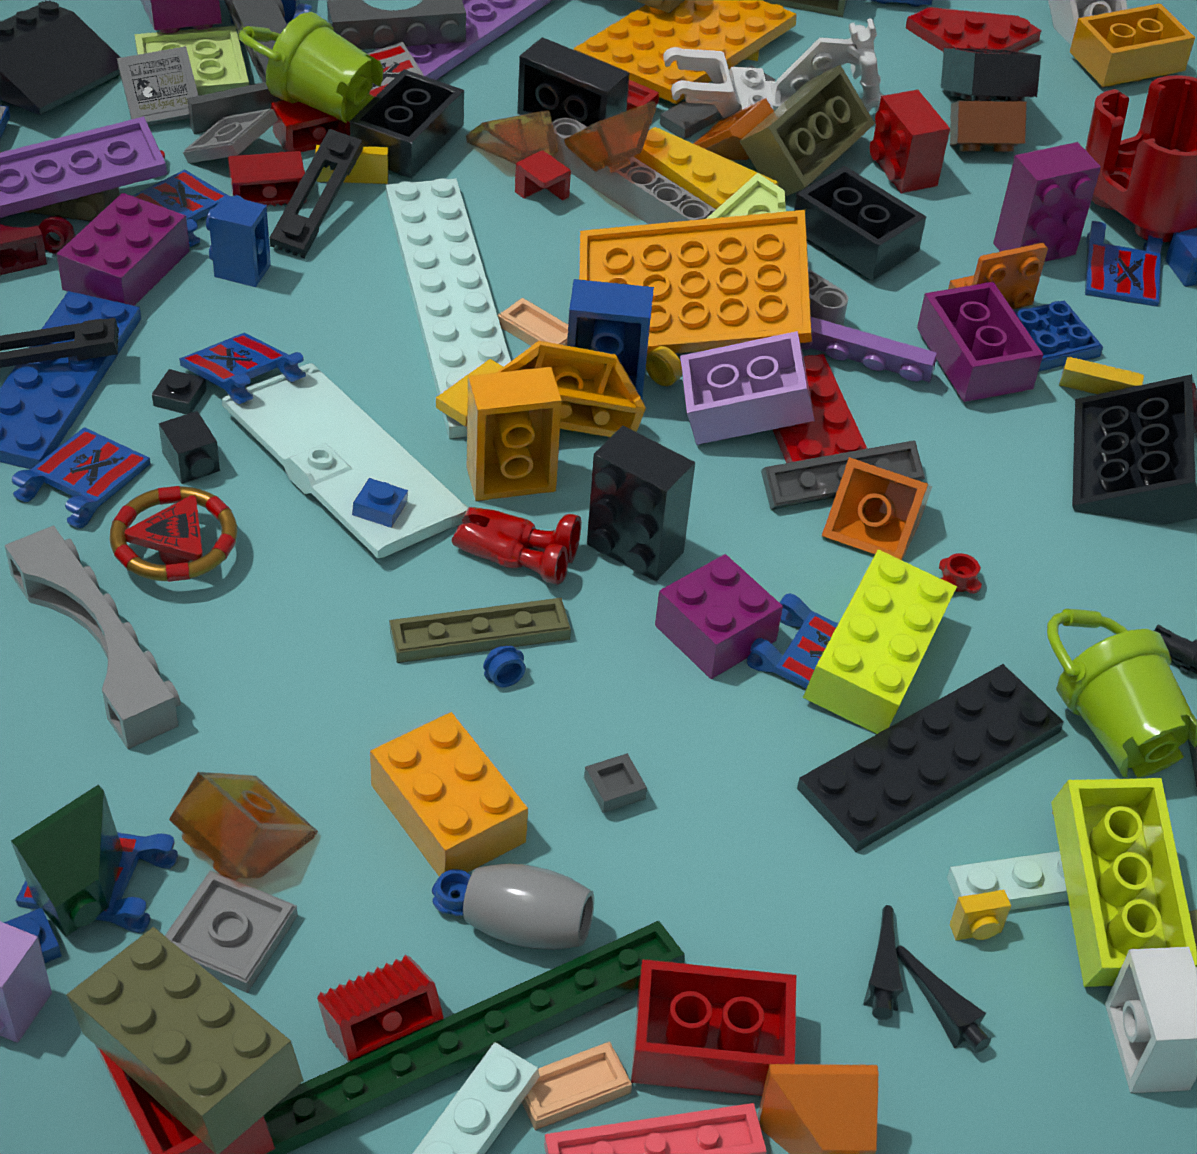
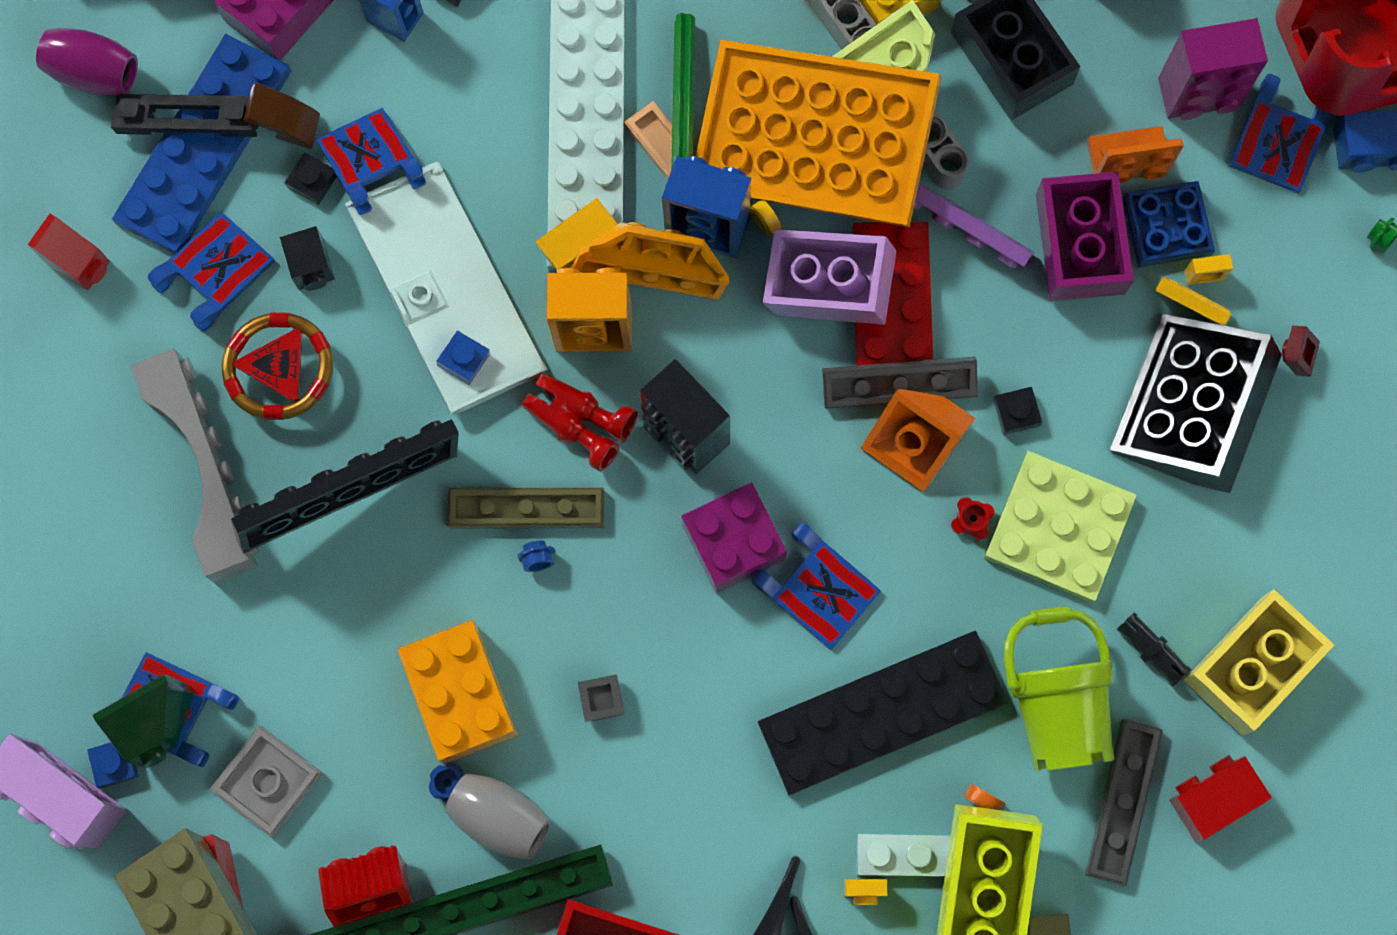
camera: 20 degrees right, 30 degrees up
(153, 341) = (282, 114): none -> reddish brown slope
(239, 824) = (290, 687): clear orange slope -> none
(274, 607) = (338, 489): none -> black plate
(550, 284) = (683, 86): none -> green axle
(879, 642) = (869, 594): neon yellow brick -> none
(968, 486) = (1017, 410): none -> black plate
(1048, 567) = (1060, 527): none -> yellowish green plate
(1107, 351) = (1208, 269): none -> yellow tile

